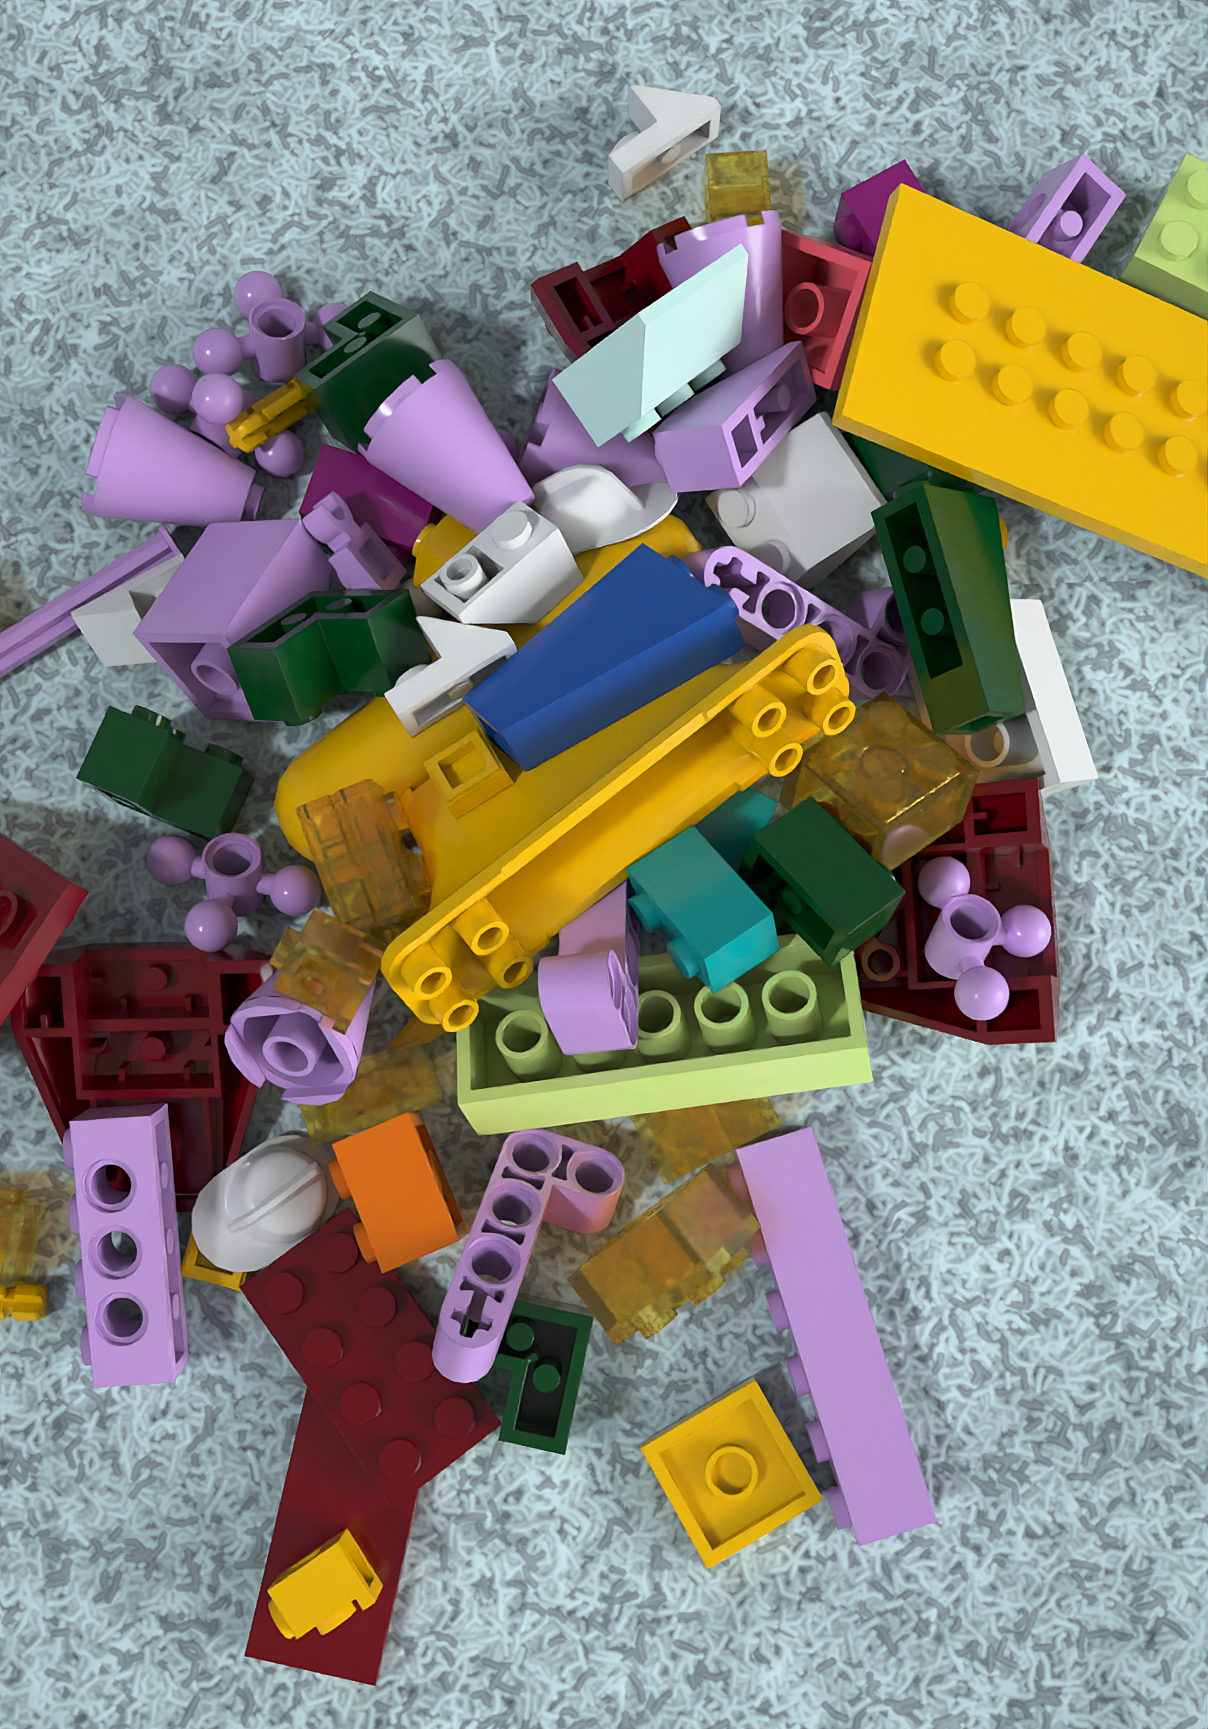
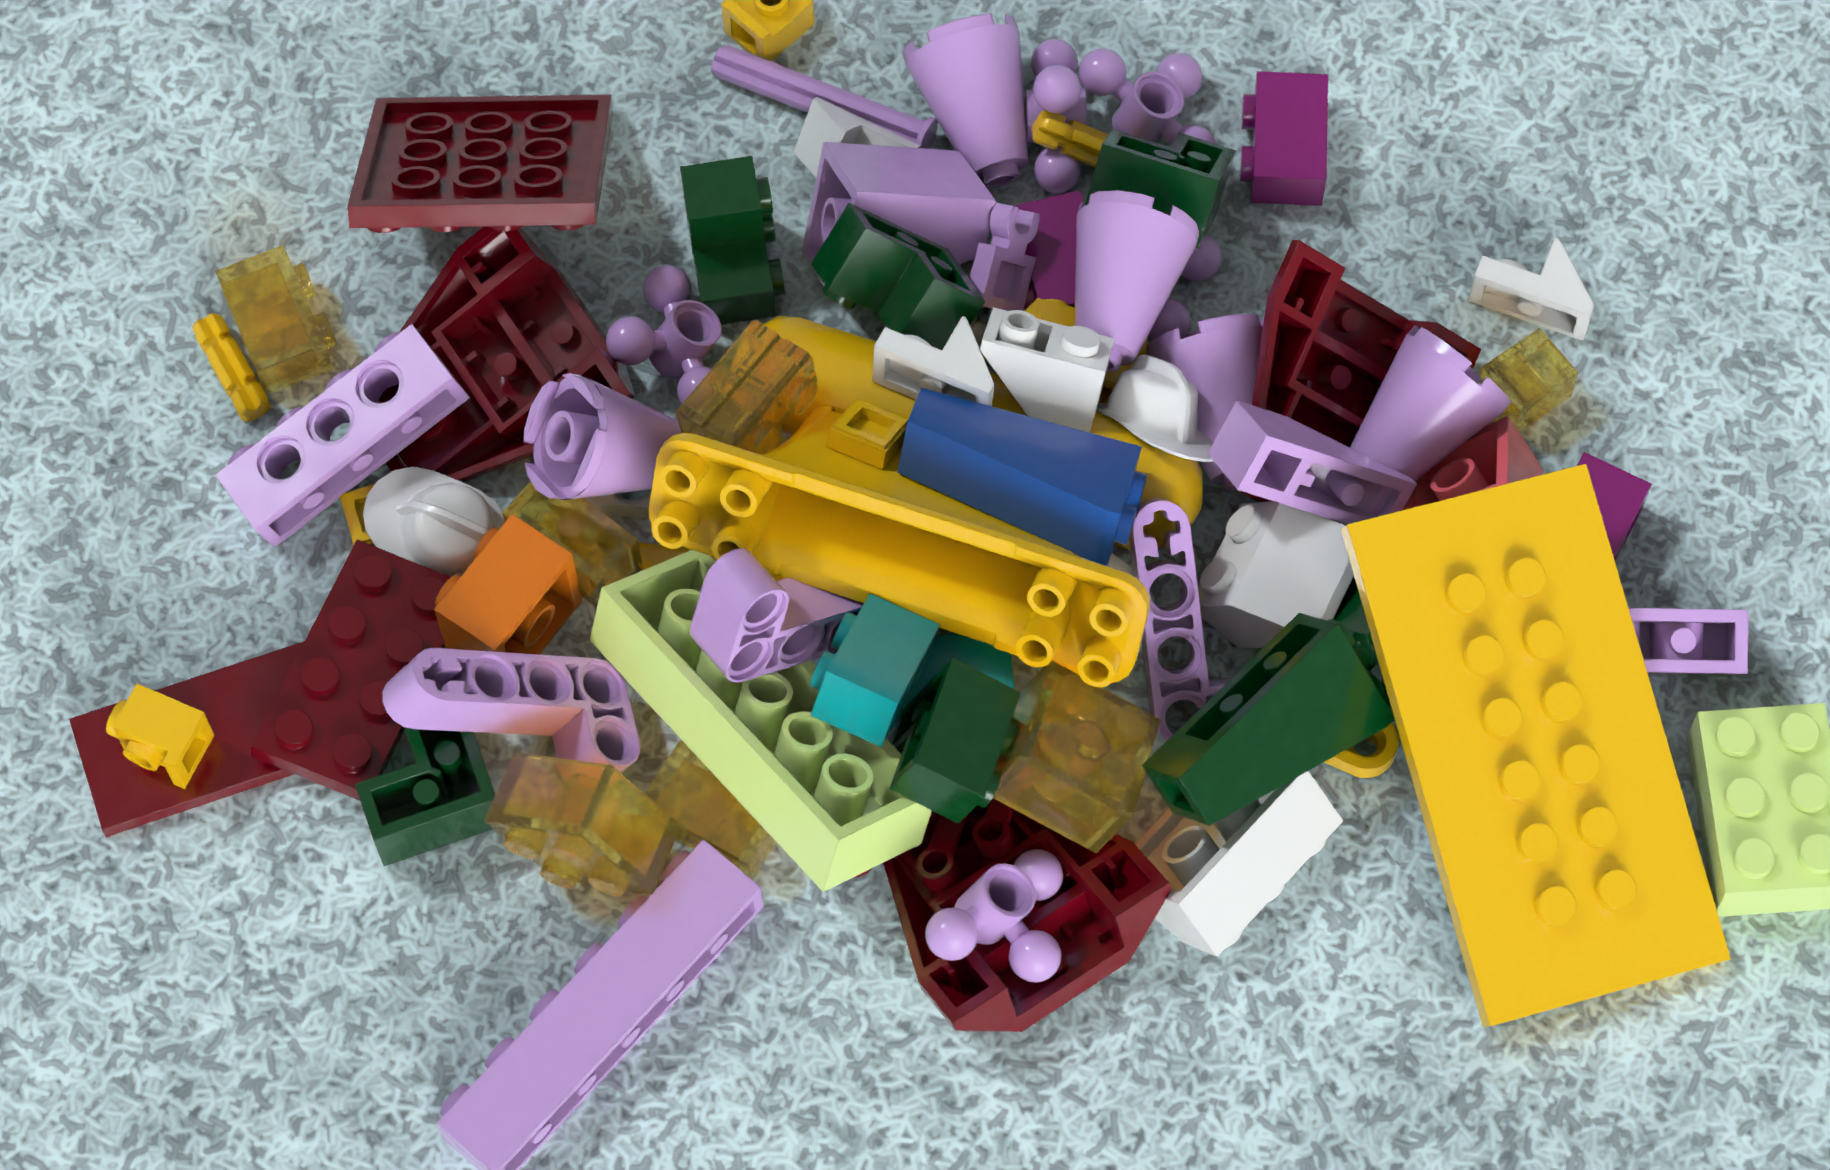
camera: 60 degrees right, 15 degrees down
(327, 966) = (642, 410): clear yellow brick -> none
(381, 242) = (1287, 138): none -> magenta brick
(659, 352) = (1308, 366): light aqua slope -> none
(730, 1472) = (436, 1003): yellow plate -> none

